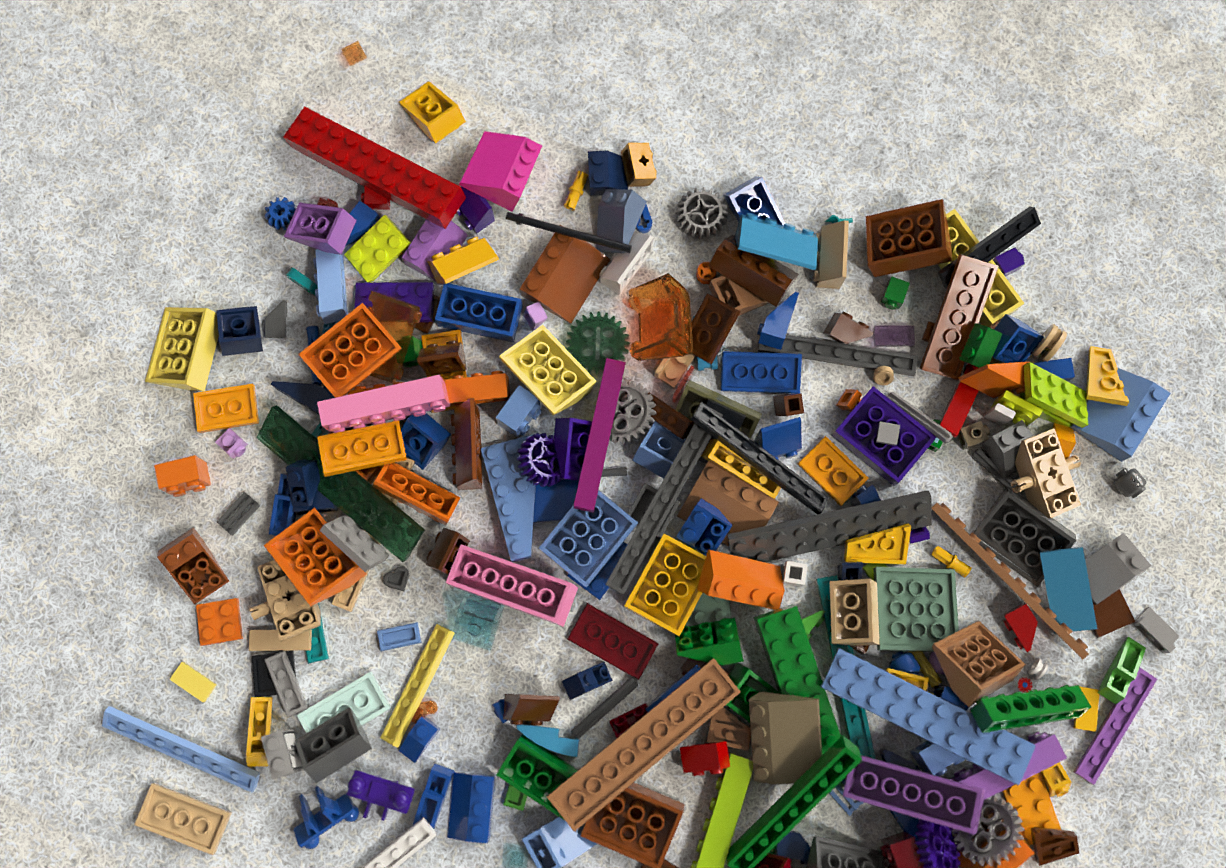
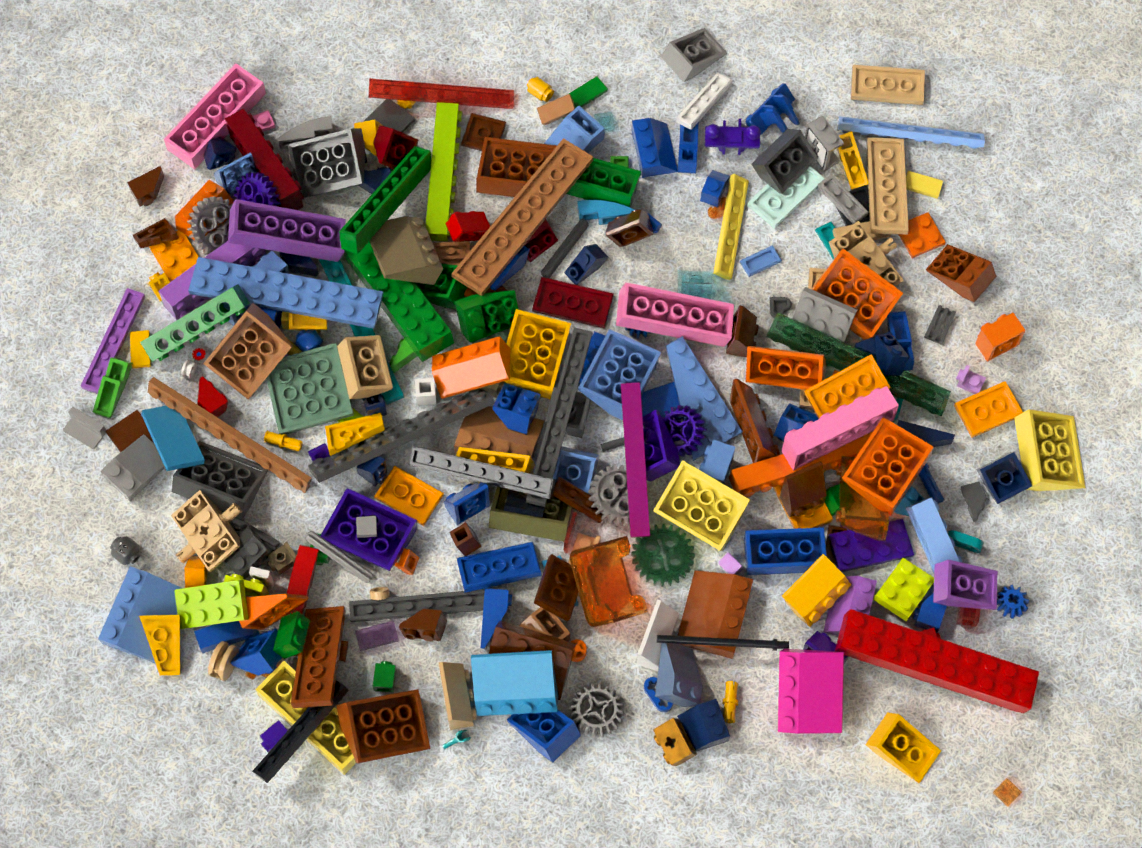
camera: 165 degrees right, 10 degrees down
(231, 687) = (887, 186): none -> tan plate

